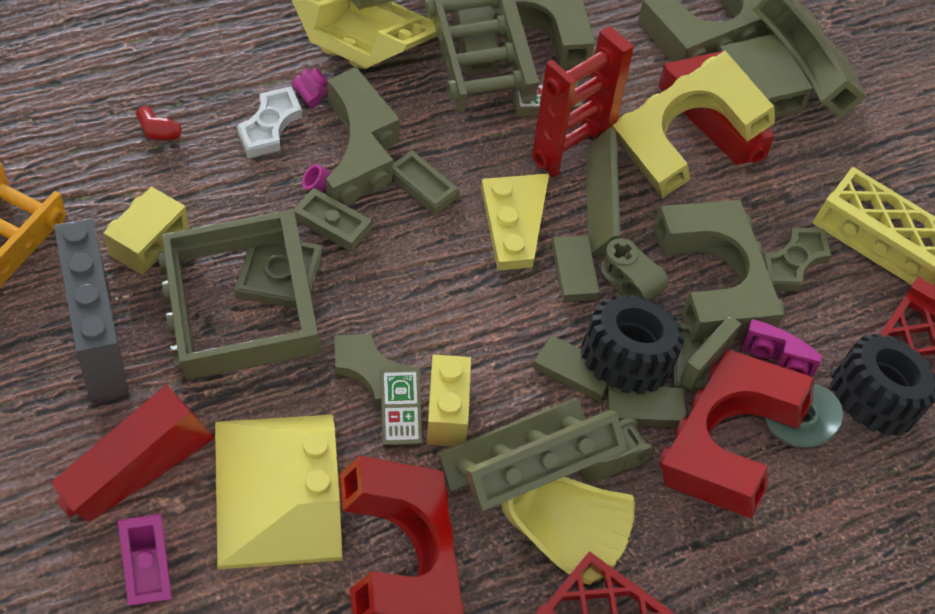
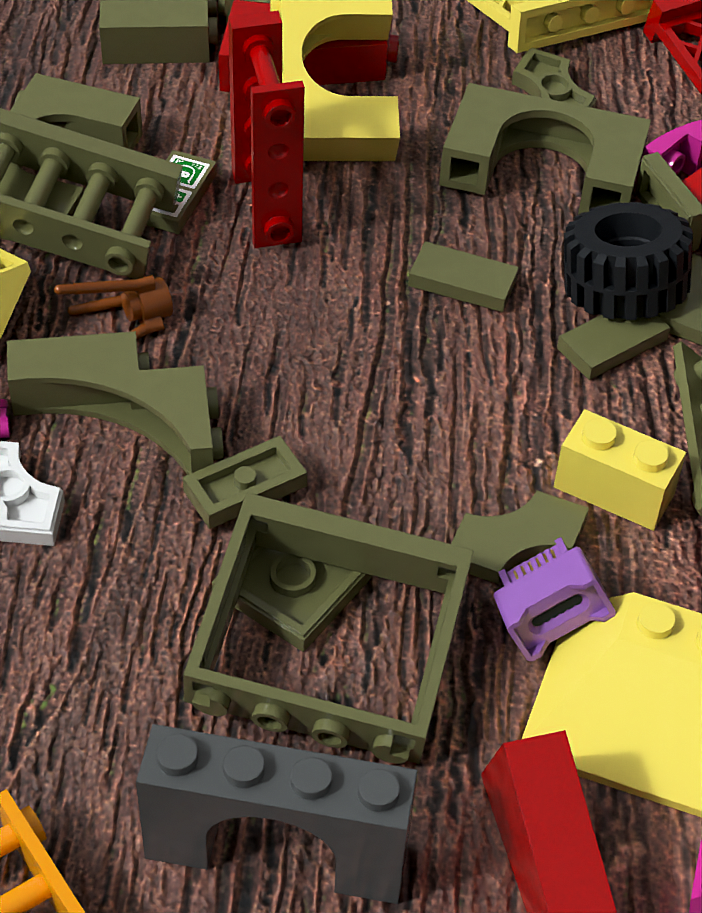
camera: 60 degrees left, 5 degrees down
(138, 232) = (123, 697): light yellow brick -> none
(315, 178) = (157, 482): dark pink hinge -> none
(318, 393) = (550, 598): none -> medium lavender piece
(401, 406) = (602, 523): tile -> none
(424, 182) = (239, 362): olive tile -> none
(439, 118) = (141, 298): none -> dark orange plant
(514, 217) = (350, 300): light yellow wing -> none
(602, 192) = (378, 201): olive slope -> none
(632, 275) = (511, 223): olive piece -> none

